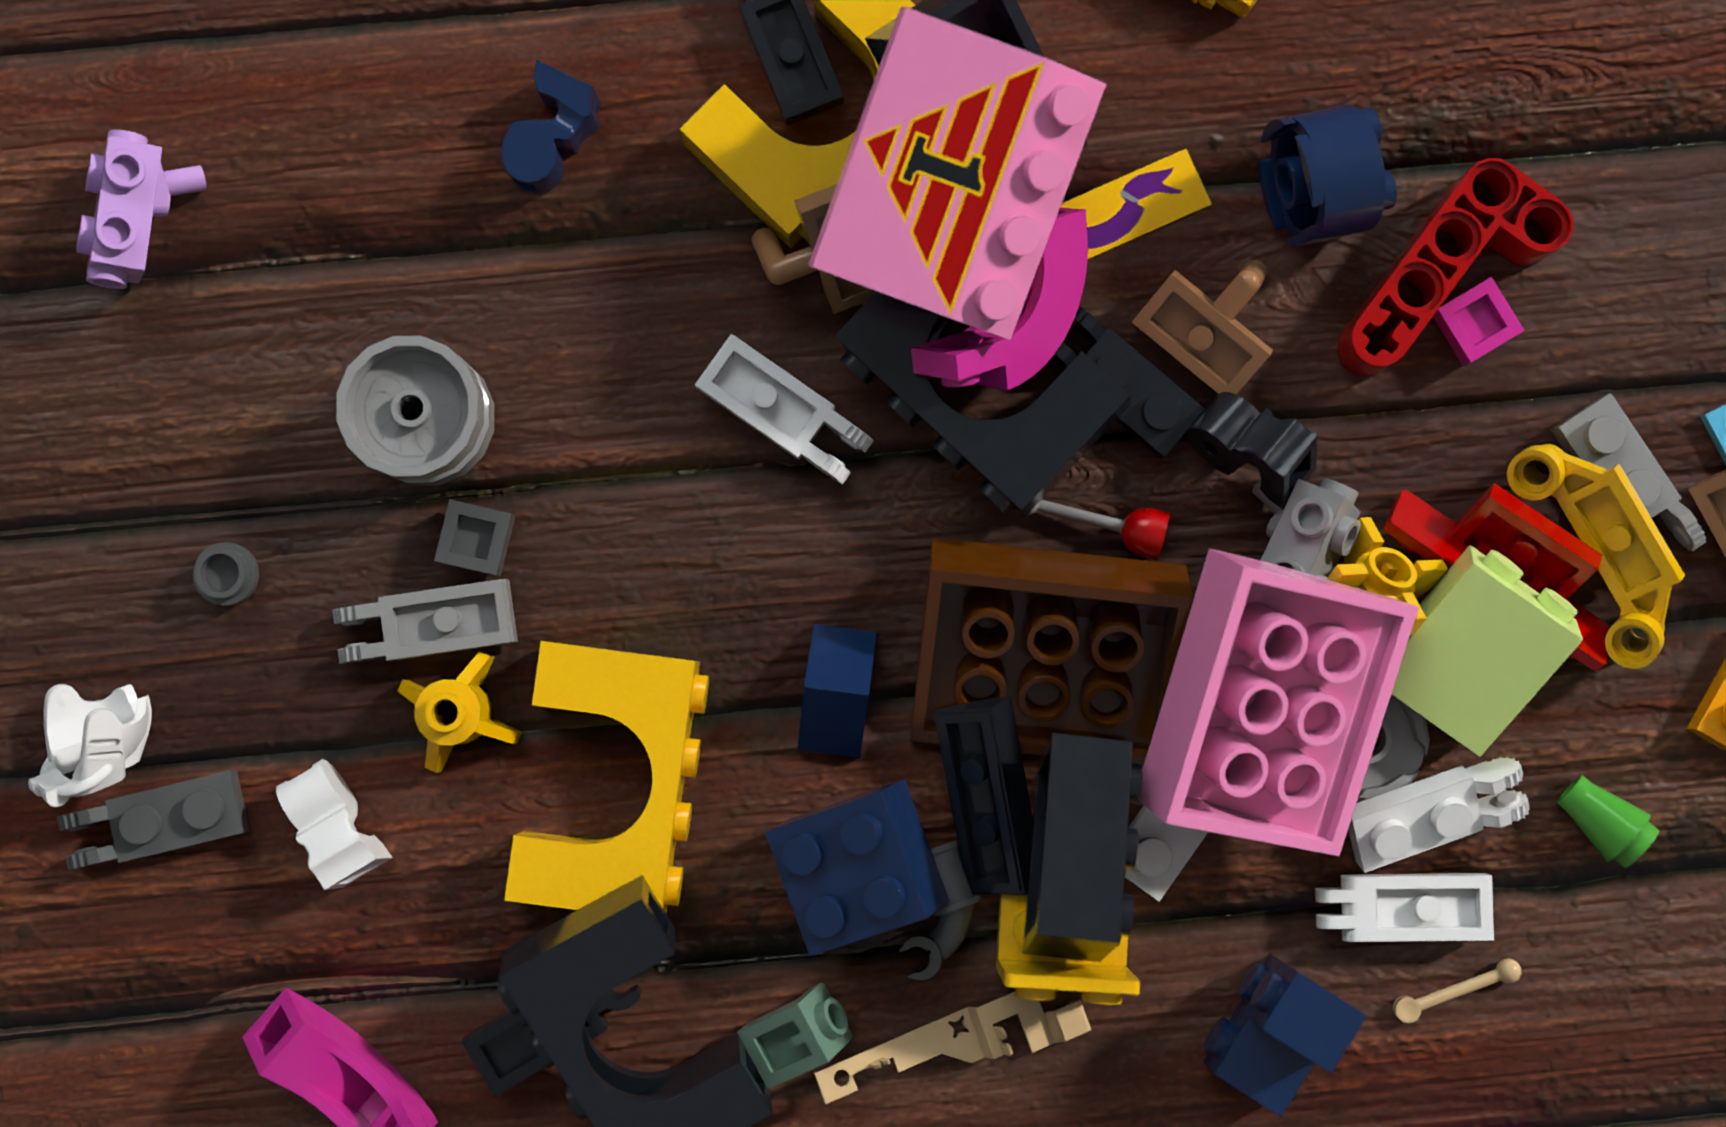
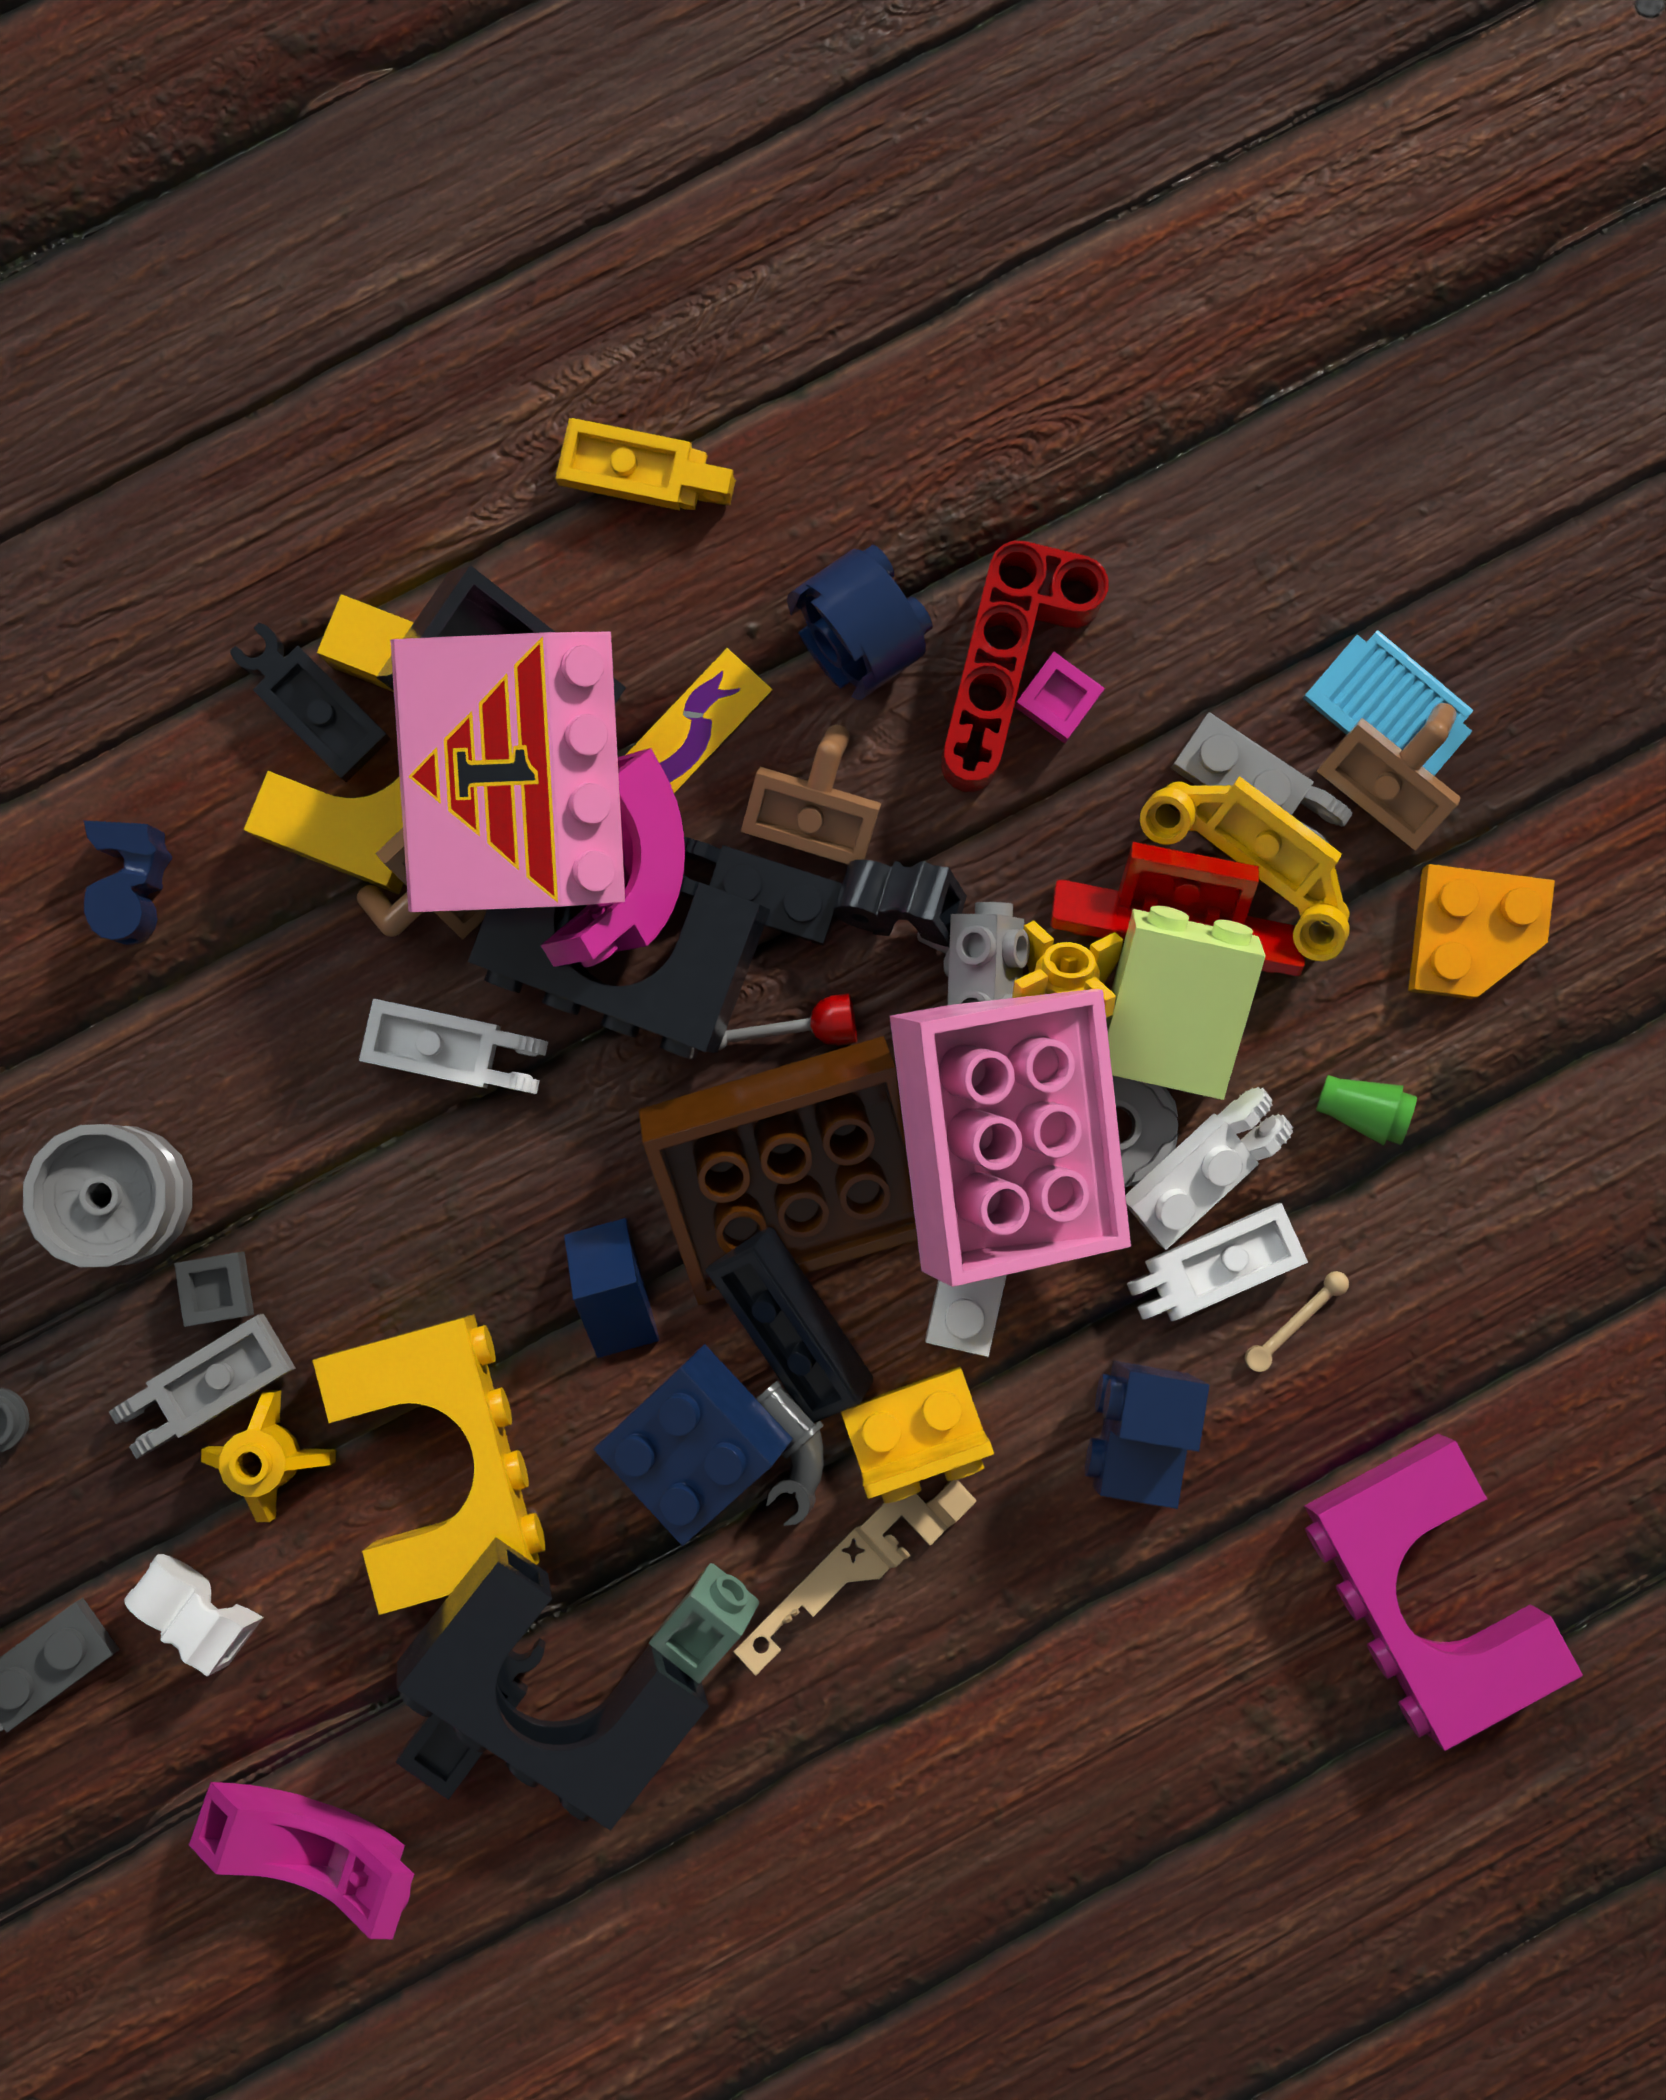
camera: 20 degrees left, 0 degrees up
(1081, 848) = (890, 1340): black piece -> none

